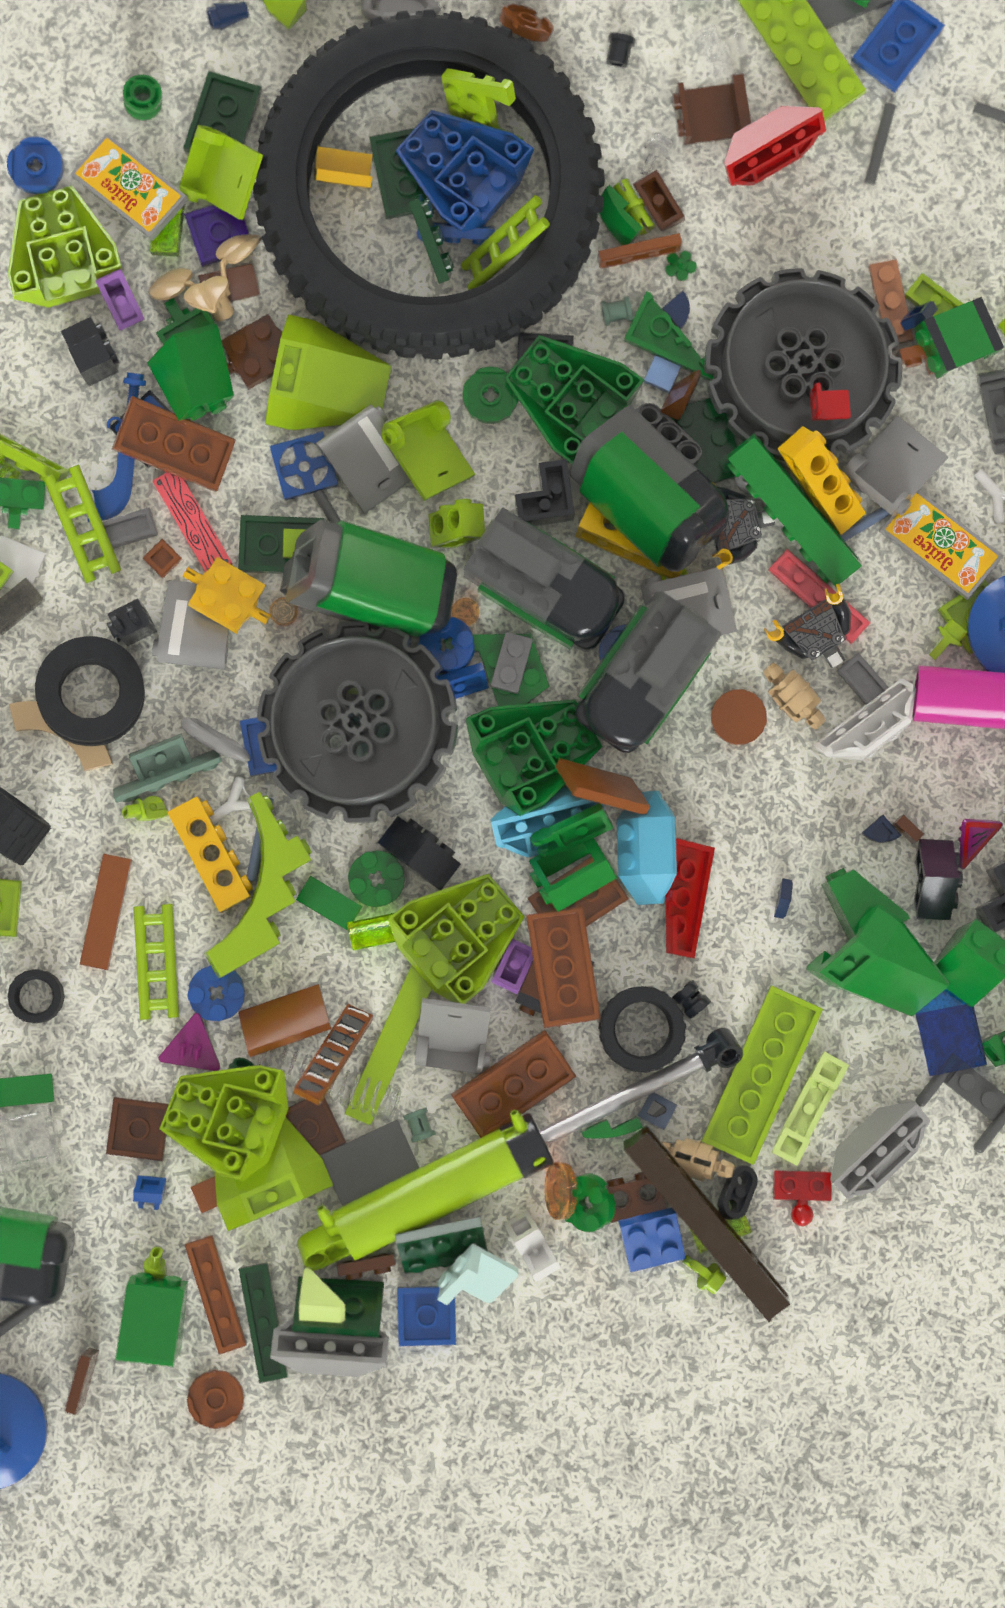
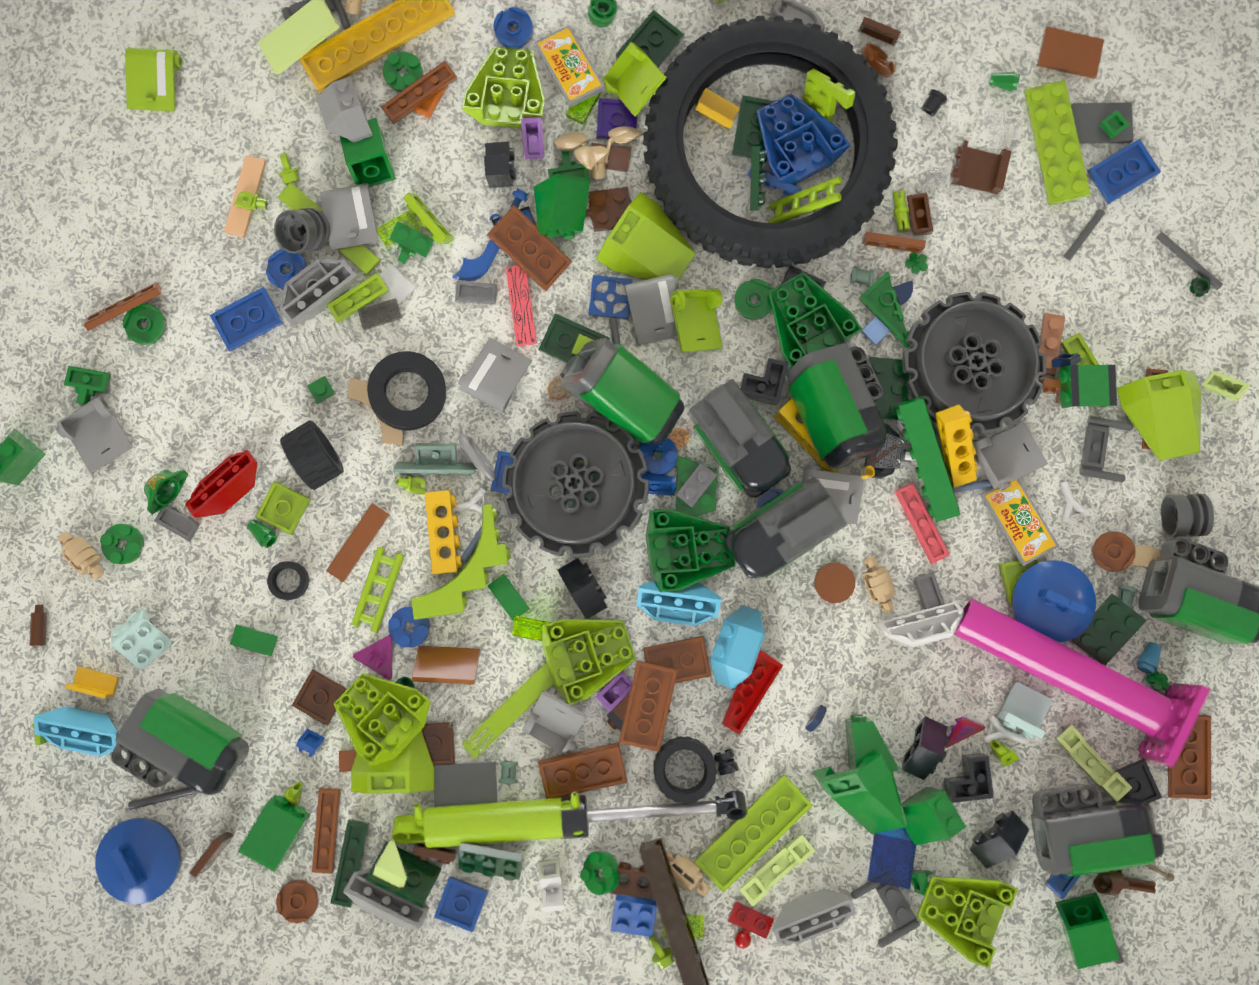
camera: 25 degrees right, 0 degrees up
(67, 514) = (438, 267): lime bar -> none
(131, 623) = (452, 356): black hinge -> none
(162, 558) = (491, 321): dark orange tile -> none
(226, 595) = (523, 363): yellow plate -> none
(333, 1054) = (468, 702): tile -> none
(369, 864) = (558, 593): green plate -> none
(456, 524) = (696, 377): lime brick -> none
(477, 1274) = (505, 890): light aqua bracket -> none
(558, 1191) = (584, 856): clear orange tile -> none
(572, 831) = (690, 616): green hinge -> none
(577, 884) = (680, 654): green window -> none
(602, 786) = (723, 594): dark orange tile -> none
(603, 1130) = (629, 826): green slope -> none
(617, 220) = (886, 214): green slope -> none
(657, 1110) = (673, 828): sand blue slope -> none
(680, 395) = (882, 350): reddish brown slope -> none
(737, 1194) = (704, 909): black plate -> none
(772, 143) = (1013, 205): red wedge -> none
(817, 630) = (912, 545): torso -> none
(829, 404) = (983, 396): red bracket -> none
(881, 831) = (901, 699): dark blue tile -> none
(908, 829) = (919, 706): reddish brown tile -> none
(952, 633) = (1003, 585): lime piece -> none

